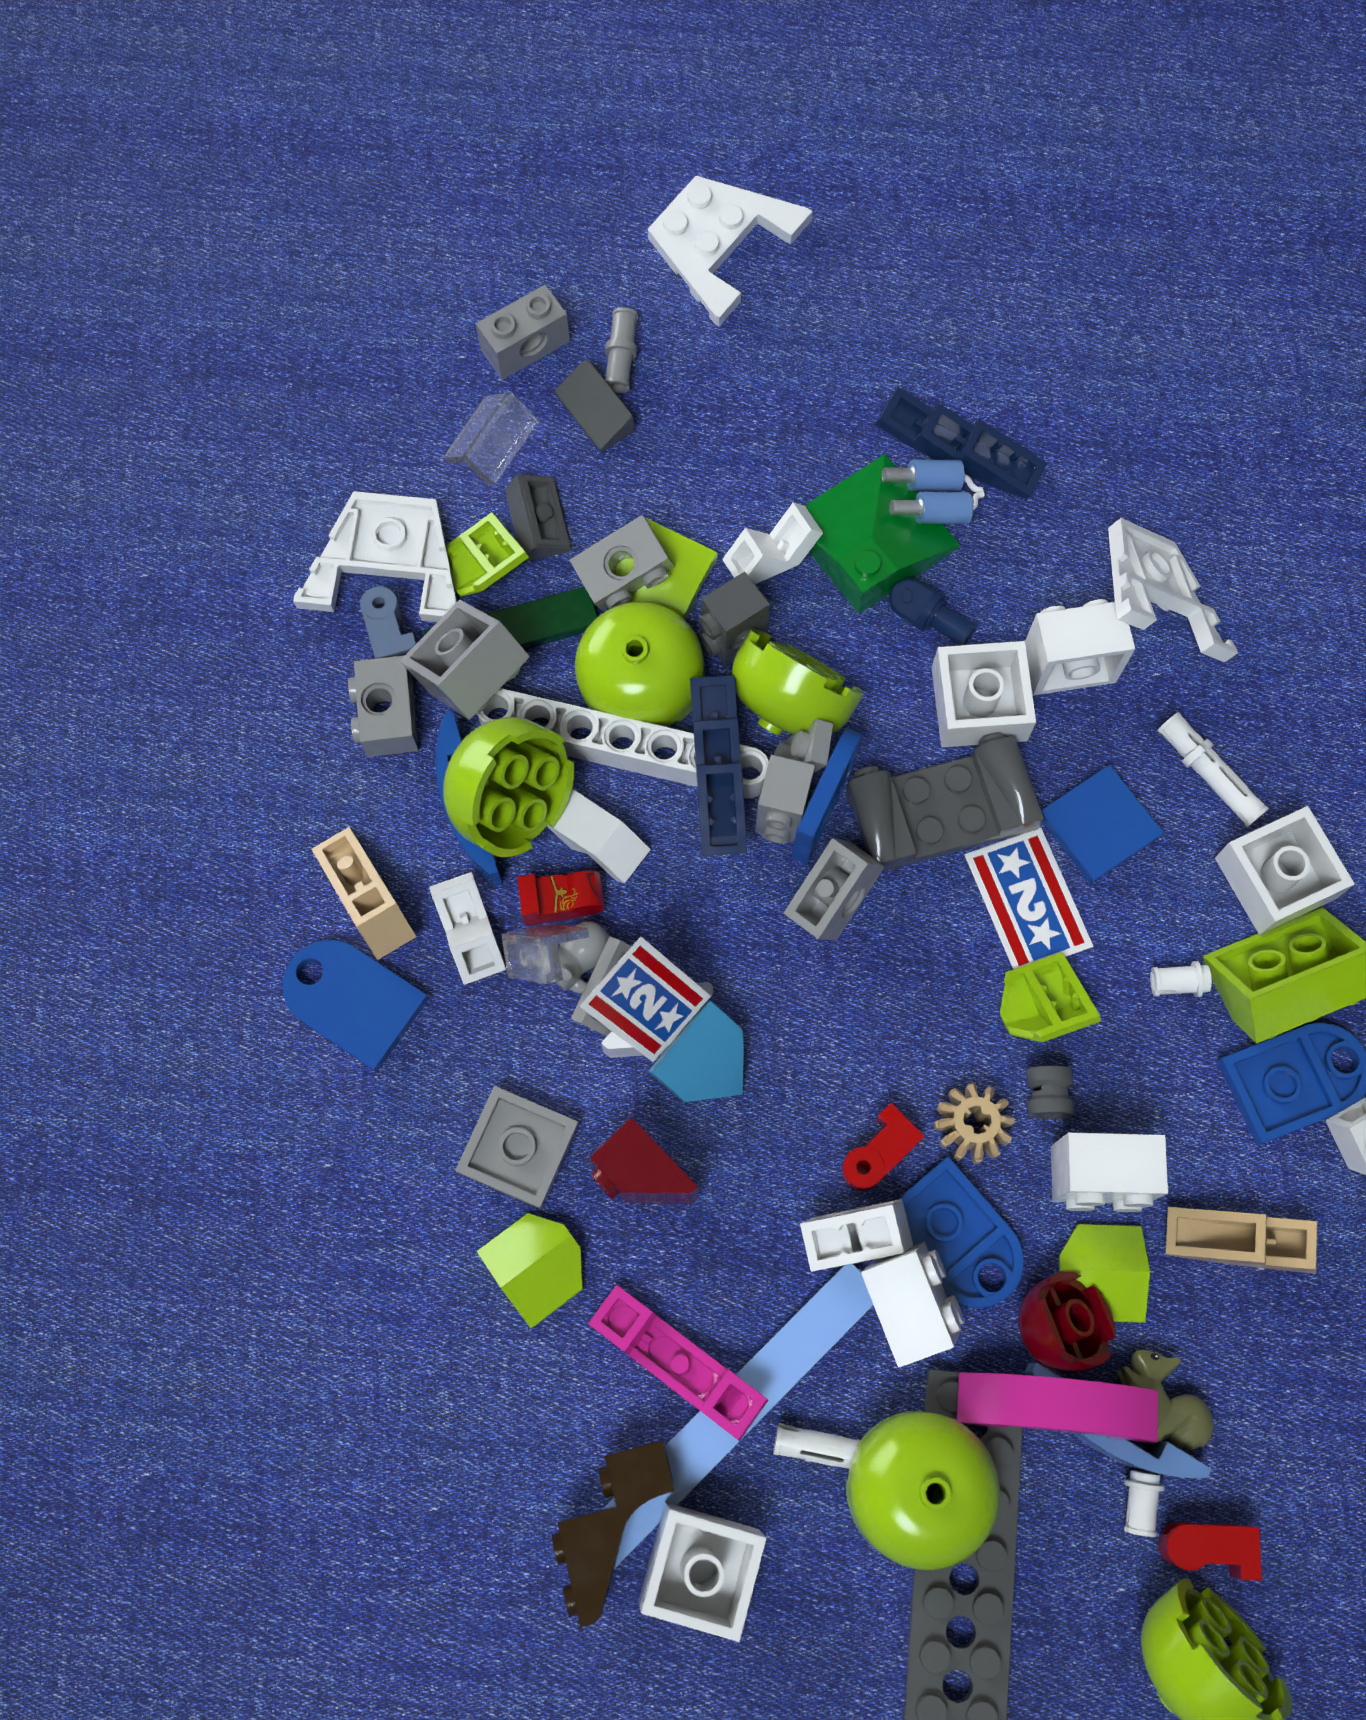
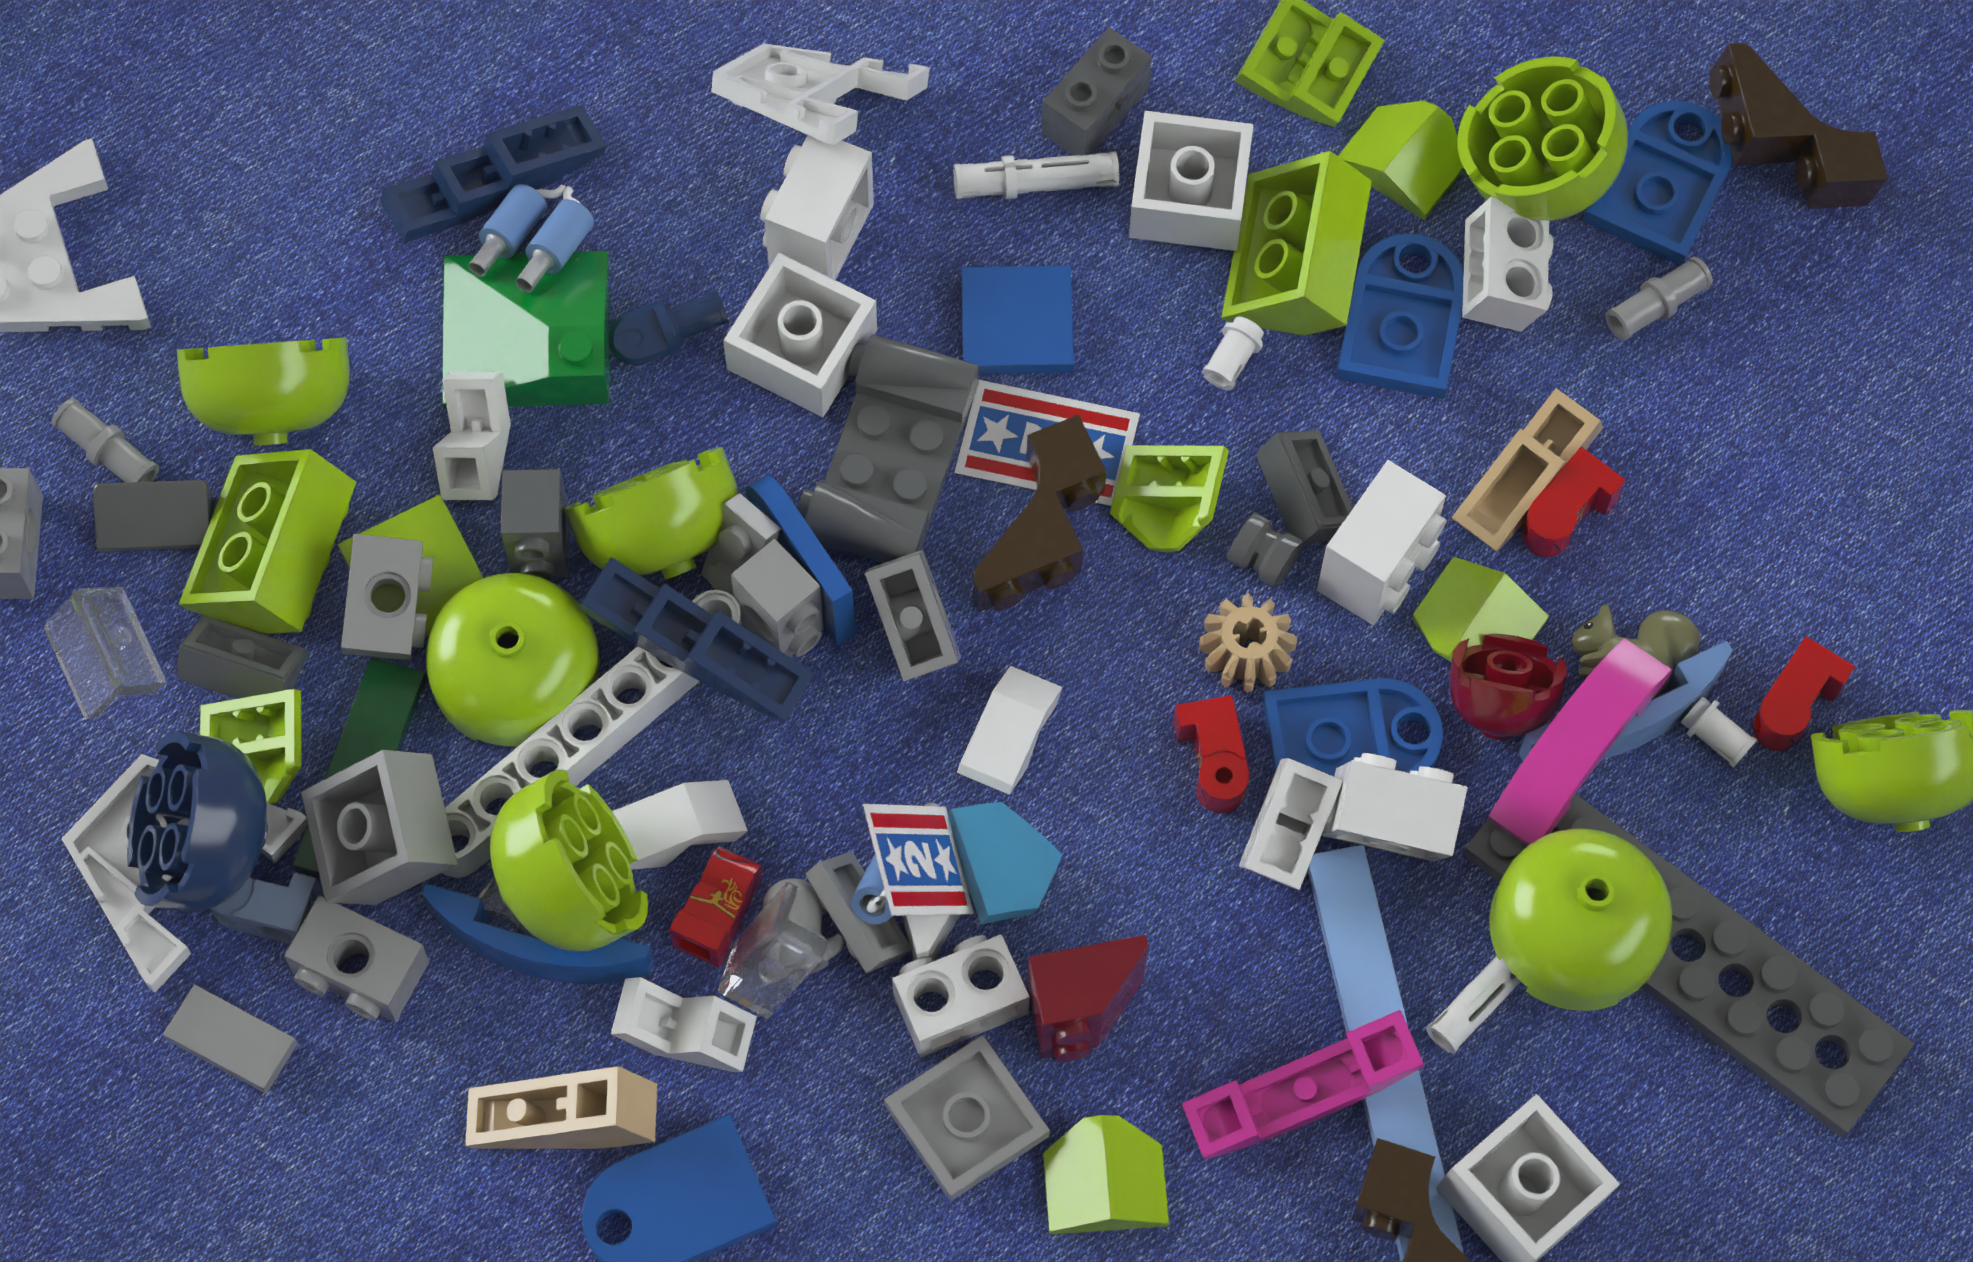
camera: 60 degrees left, 5 degrees down
(293, 669) = (230, 1039): none -> light grey tile
(400, 558) = (226, 827): none -> dark blue cylinder
(590, 1097) = (967, 1007): none -> white brick
(621, 479) = (269, 541): none -> lime slope
(716, 405) = (265, 386): none -> lime cylinder
(803, 1002) = (1009, 730): none -> white slope
(948, 938) = (1041, 542): none -> dark brown arch
(1121, 1090) = (1305, 484): none -> dark grey slope
(1241, 1281) = (1566, 500): none -> red leg
(1301, 769) = (1096, 94): none -> dark grey brick

